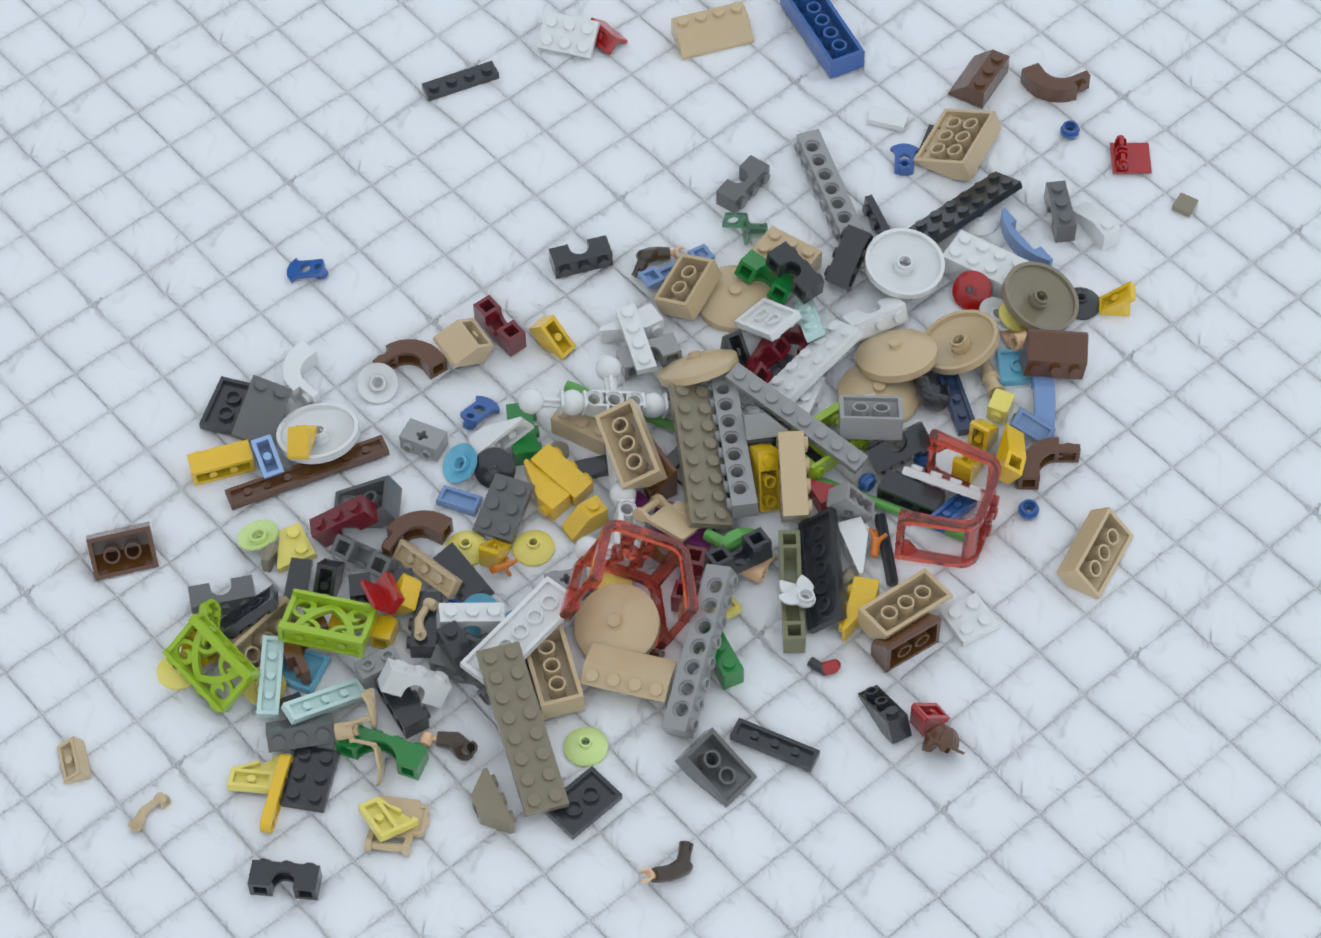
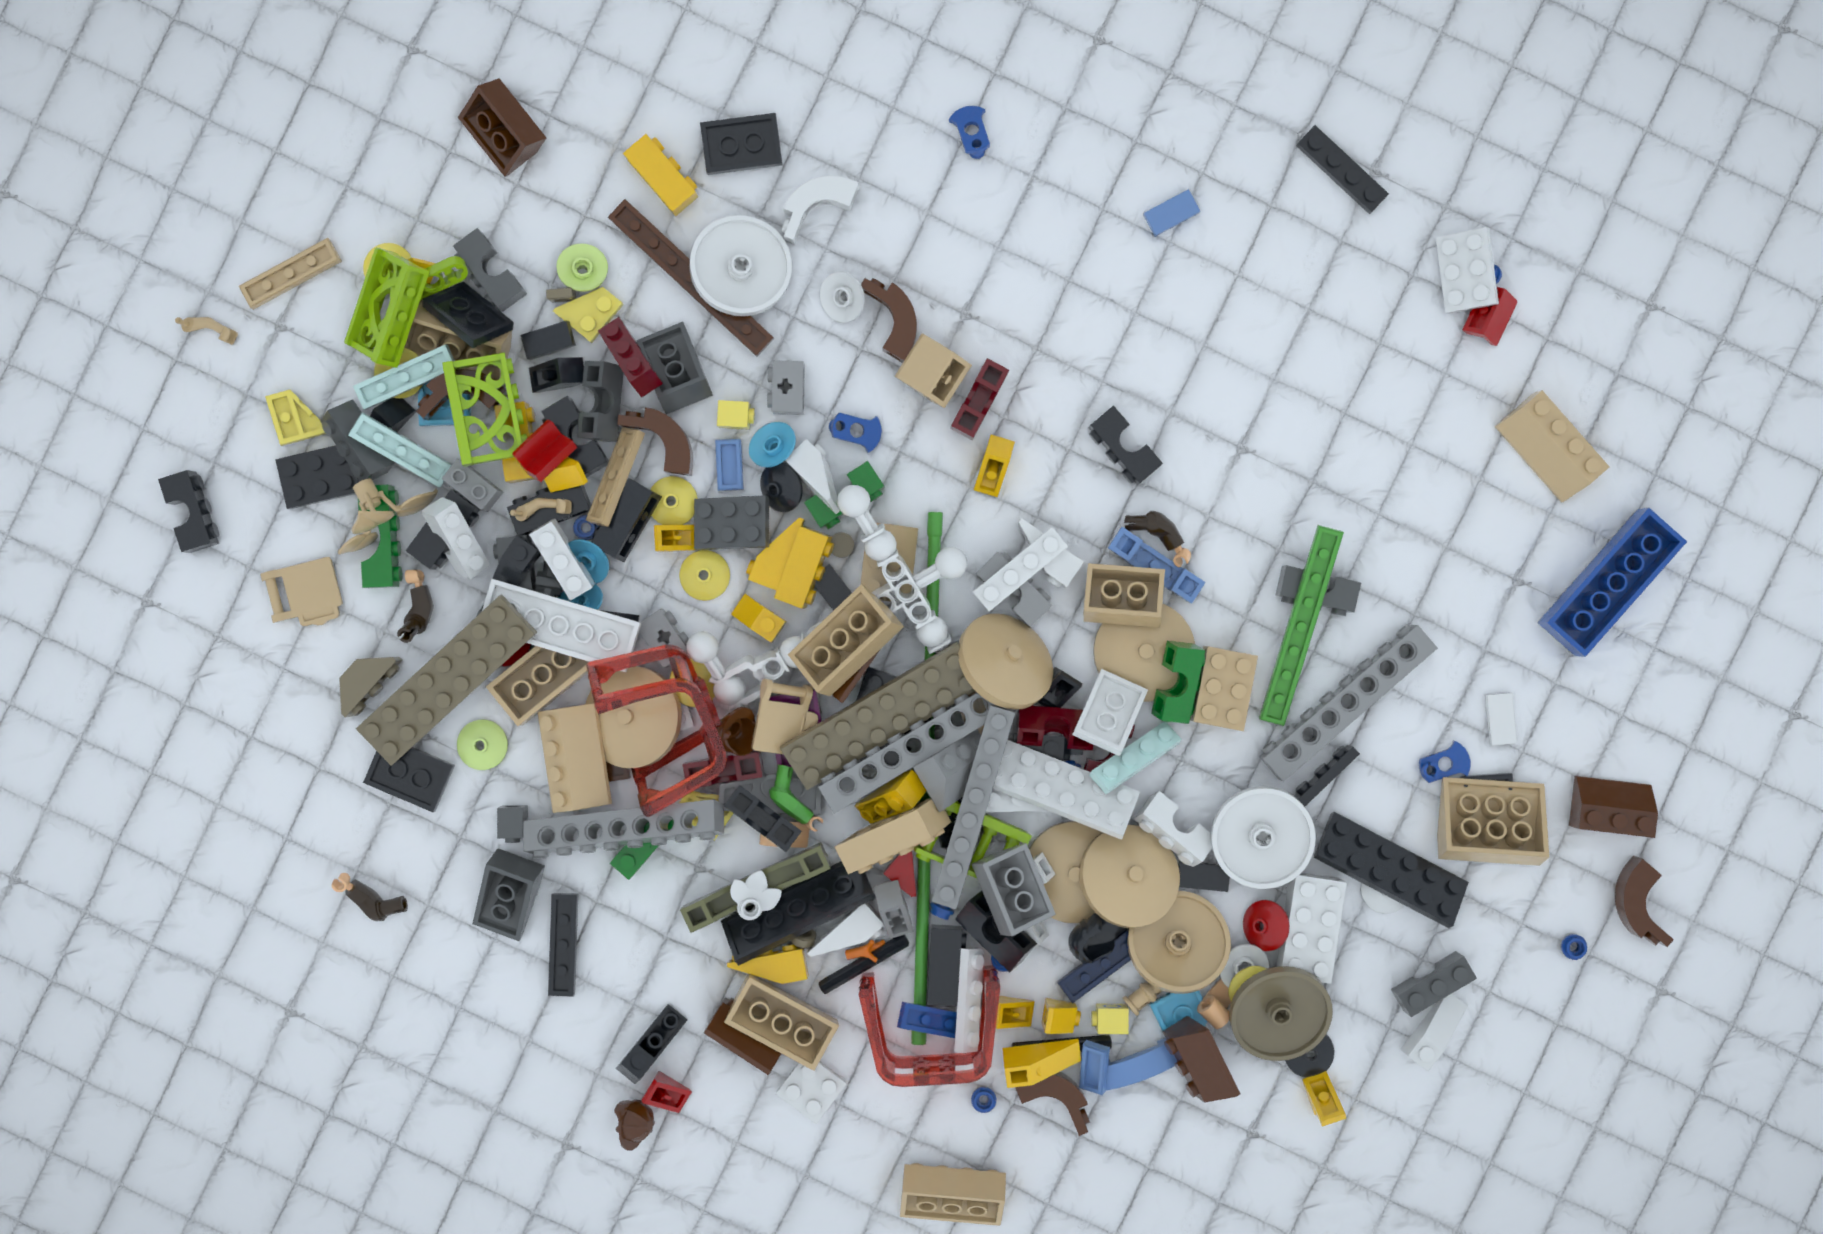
camera: 65 degrees right, 35 degrees up
(74, 760) = (234, 218): tan slope -> none
(141, 738) = (290, 273): none -> tan tile
(261, 409) = (740, 186): dark grey slope -> none
(266, 456) = (682, 226): light blue slope -> none
(272, 804) = (269, 454): yellow beam -> none
(300, 441) = (710, 257): yellow slope -> none
(385, 819) = (296, 582): light yellow wing -> none
(424, 480) = (735, 415): none -> light yellow brick
(433, 180) = (1171, 213): none -> medium blue tile
(503, 567) = (658, 557): orange bar -> none
(658, 742) = (510, 822): none -> dark grey brick
(745, 225) = (1252, 623): clear green bracket -> none
(763, 197) = (1301, 624): none -> bright green tile
(785, 260) = (1180, 739): black arch -> none
(824, 668) = (681, 958): arm -> none
(848, 257) = (1247, 766): black brick -> none
(920, 316) = (1203, 877): none -> black tile
(1018, 243) = (1349, 983): medium blue slope -> none
(1130, 156) = (1560, 1034): red hinge -> none
(1184, 204) = (1512, 1124): dark tan tile -> none

